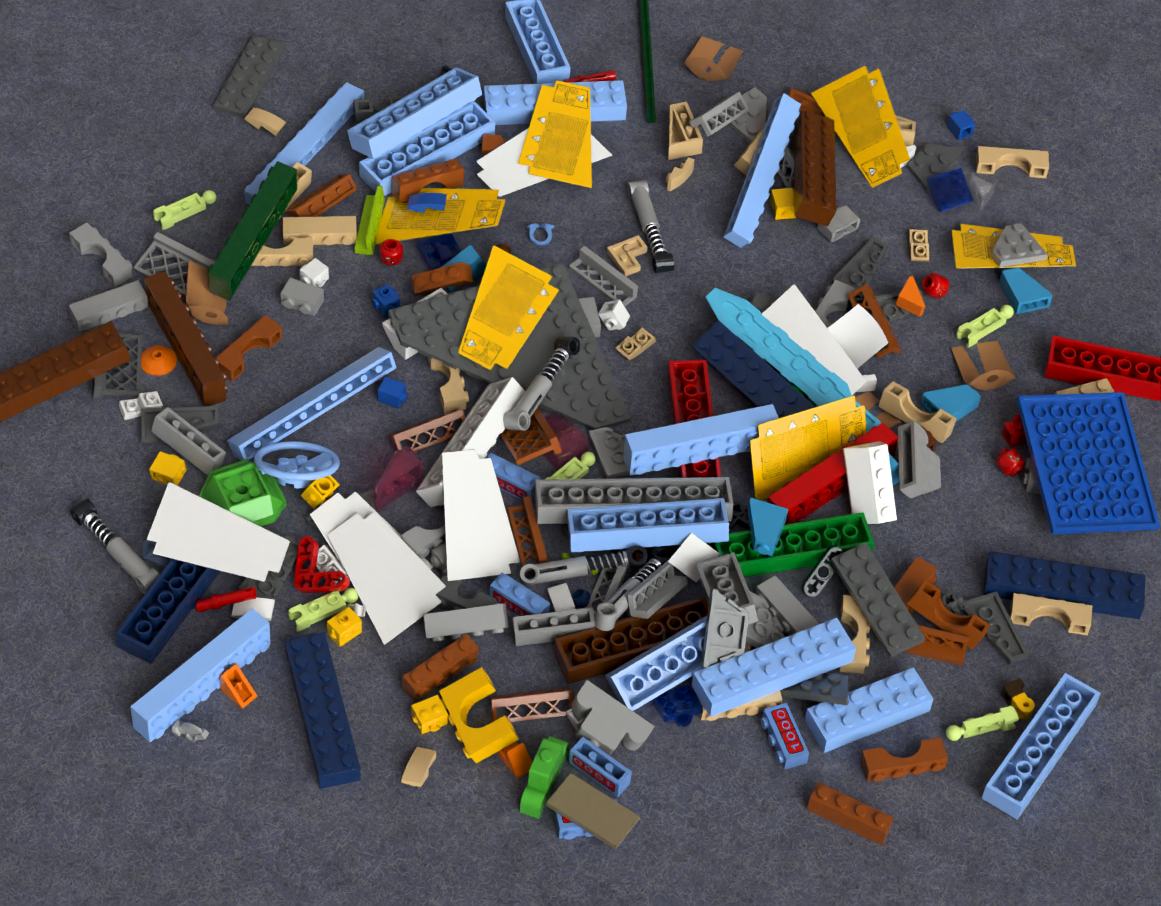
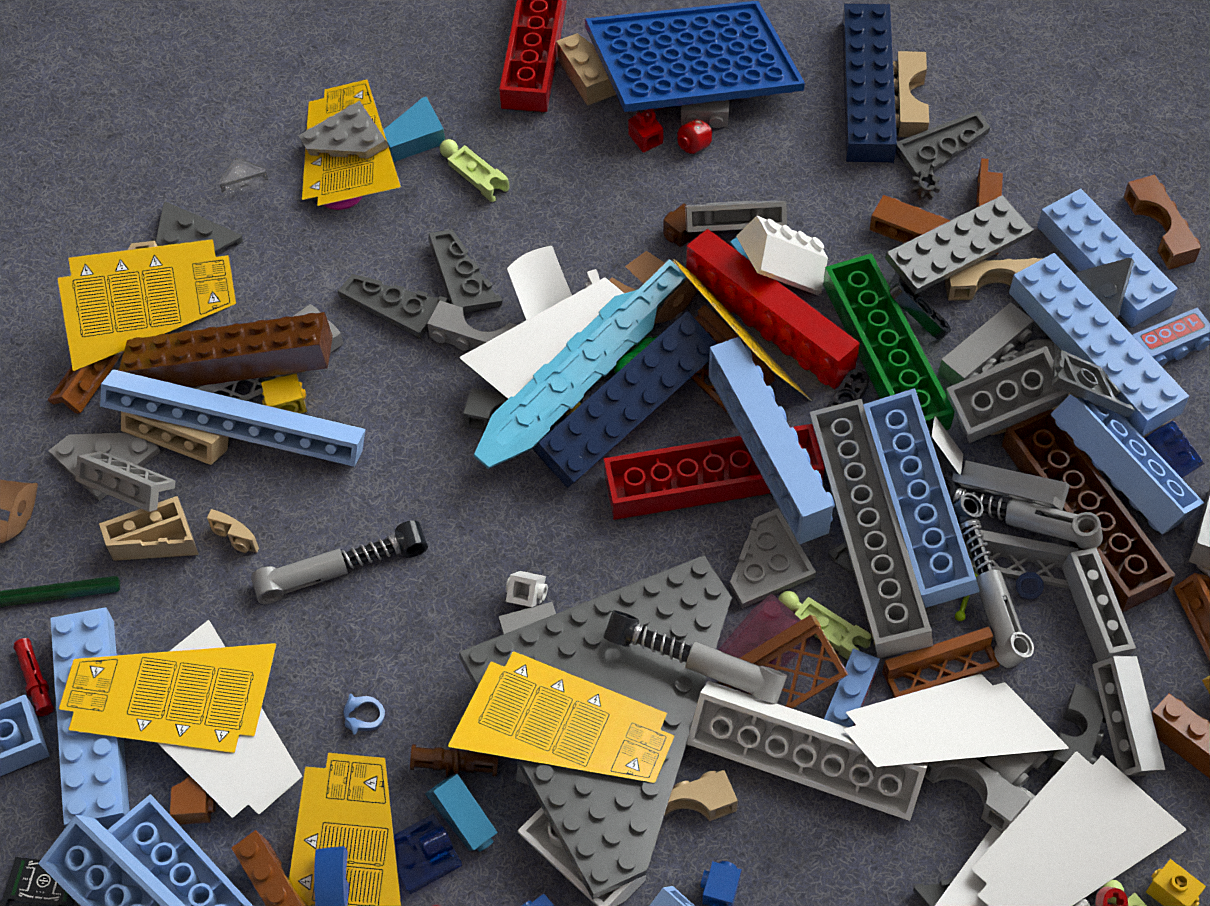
camera: 90 degrees left, 5 degrees up
(358, 609) = (1140, 870): white hand -> none
(399, 477) = (896, 848): clear pink slope -> none
(423, 427) = (779, 825): dark orange fence -> none
(451, 275) = (500, 809): dark orange arch -> none
(517, 597) = (1059, 658): medium blue brick -> none
(561, 598) = (1044, 606): white slope -> none
(608, 273) = (439, 609): light grey fence -> none
(624, 254) = (397, 594): tan plate -> none
(636, 344) = (565, 564): tan slope -> none
(765, 525) = (886, 361): dark azure slope -> none
(880, 317) = (467, 277): dark orange fence -> none
(898, 403) = (626, 248): tan arch -> none
(910, 298) = (448, 238): orange slope -> none
(918, 245) = (349, 244): tan slope -> none
(928, 602) = (949, 191): dark orange arch -> none
(935, 285) = (418, 218): red head -> none
(950, 189) = (245, 209): clear blue plate -> none
(954, 400) = (614, 197): dark azure slope -> none
(961, 124) = (120, 204): blue brick -> none
(987, 723) = (1087, 149): yellowish green plate -> none
(994, 363) = (539, 158): medium nougat piece -> none
(1015, 697) = (1039, 122): leg -> none
(1033, 162) = (188, 126): tan arch -> none
(1041, 746) = (1103, 94): light blue brick -> none

